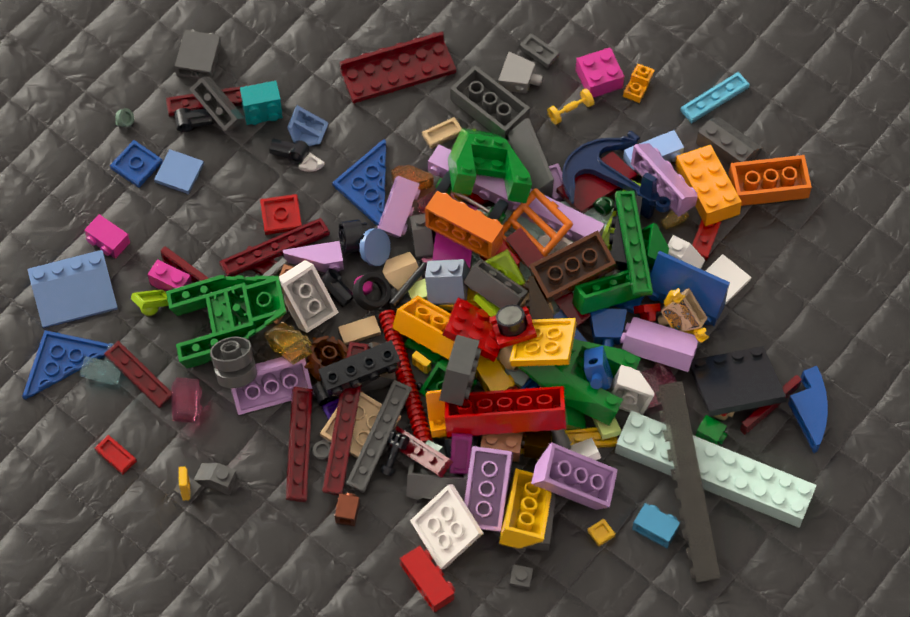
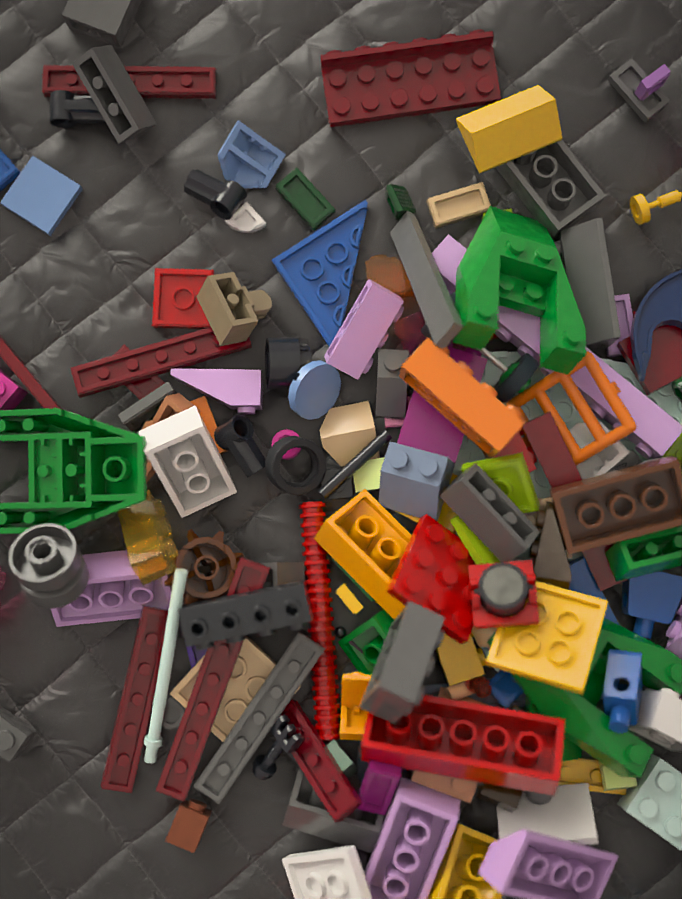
camera: 15 degrees right, 20 degrees up
(261, 102) = (184, 104): teal brick -> none
(313, 209) = (231, 308): none -> dark tan brick
(314, 466) = (153, 739): none -> light aqua bar
(346, 145) = (305, 199): none -> dark green tile
(359, 330) = (265, 521): tan tile -> none
(404, 136) = (399, 200): none -> dark green slope
(429, 167) = (426, 280): none -> dark grey tile
(464, 80) = (511, 128): none -> yellow slope
(518, 74) = (598, 127): light grey torso -> none
(545, 43) = (652, 82): none -> medium lavender tile

